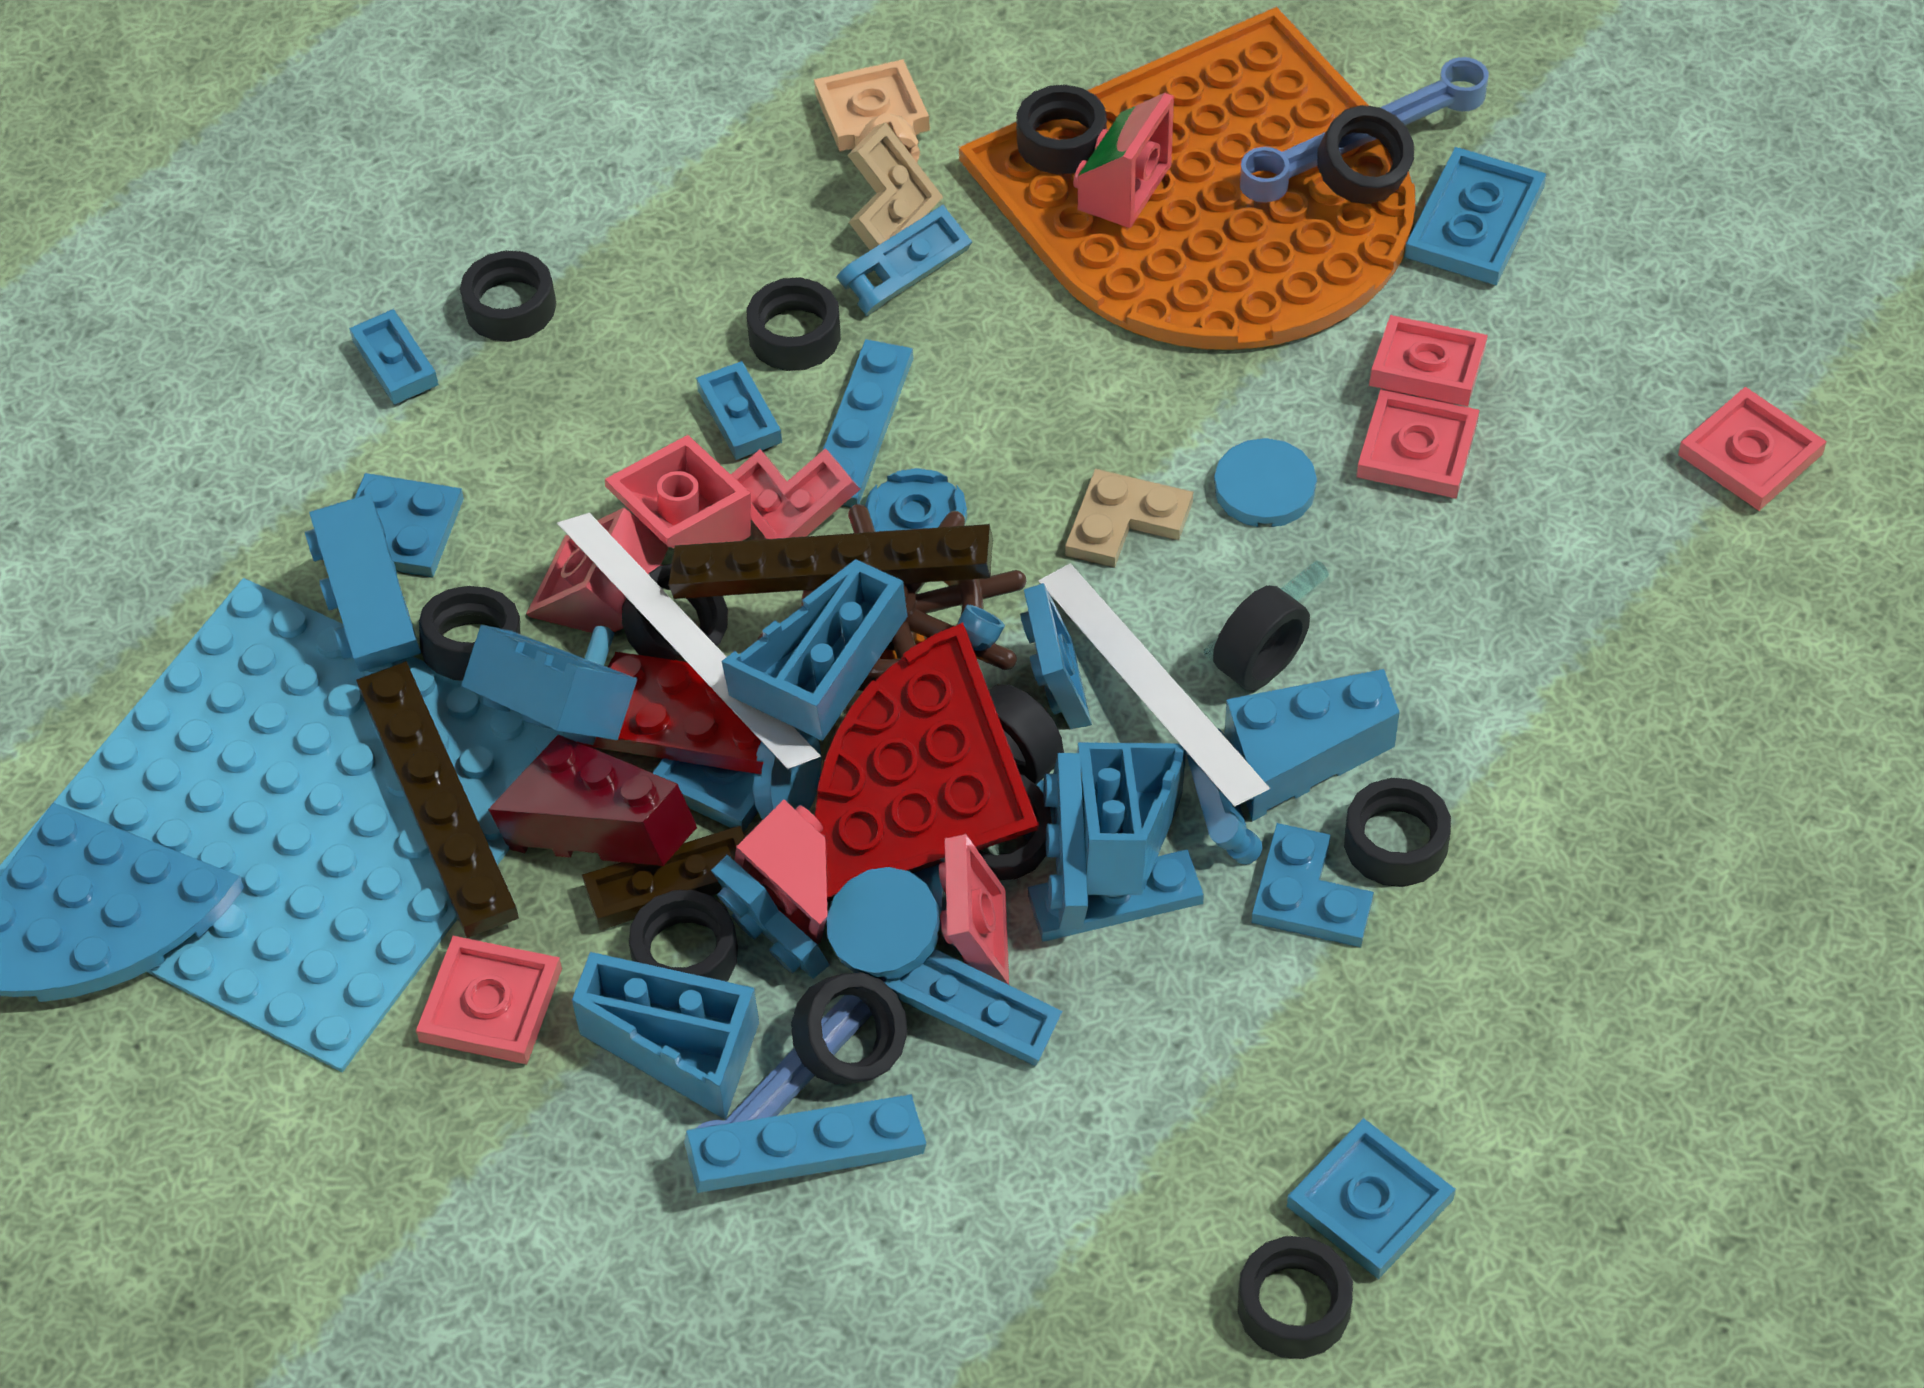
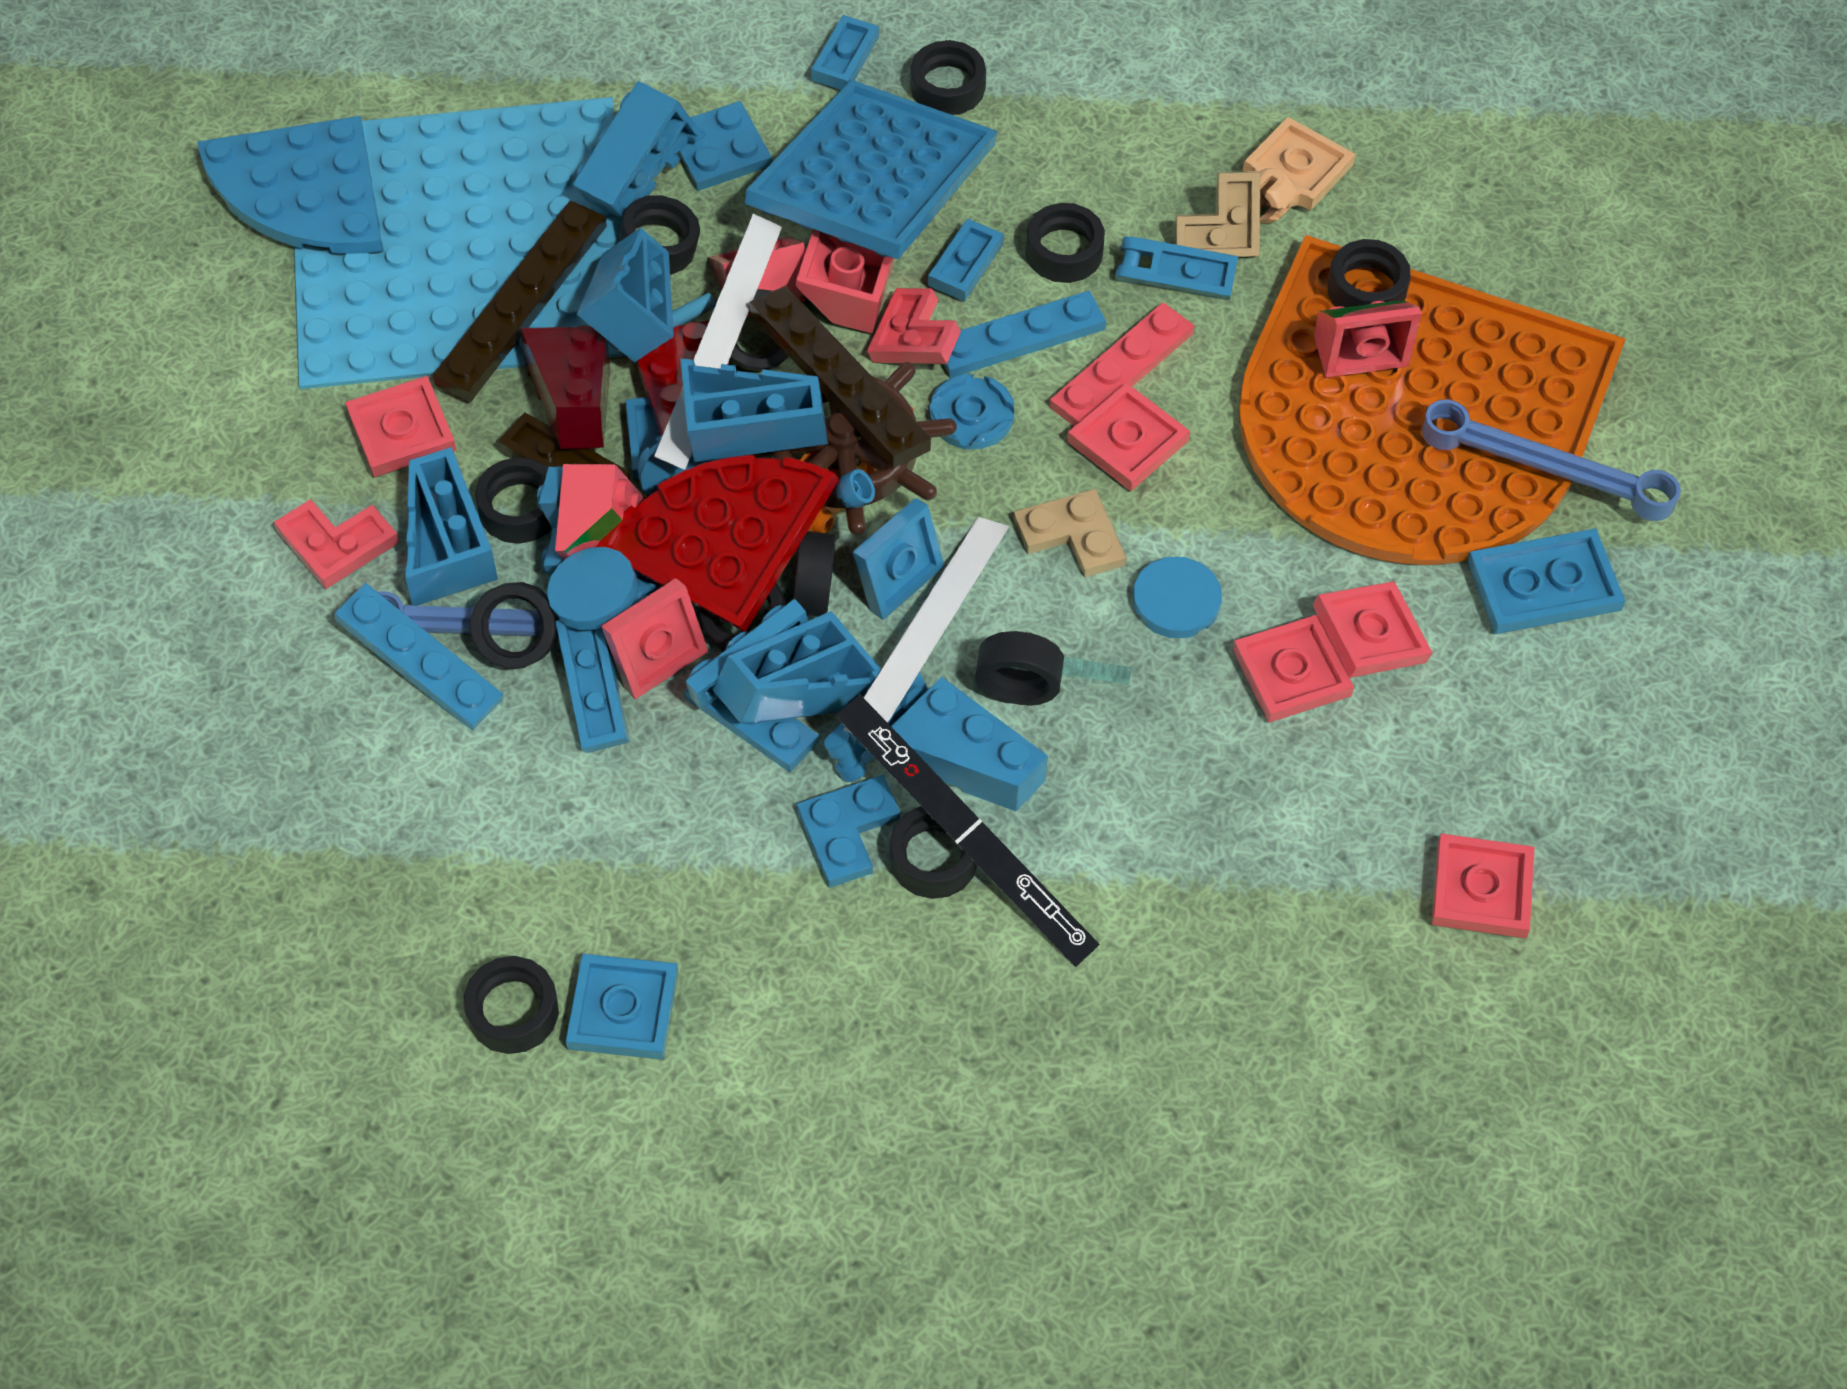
camera: 50 degrees right, 5 degrees up
(581, 407) = (871, 169): none -> dark azure plate
(587, 1157) = (335, 551): none -> coral plate
(971, 370) = (1123, 362): none -> coral plate
(1059, 409) = (1128, 436): none -> coral plate
(1380, 125) = (1506, 438): black tyre -> none
(1406, 782) = (967, 830): none -> black sticker

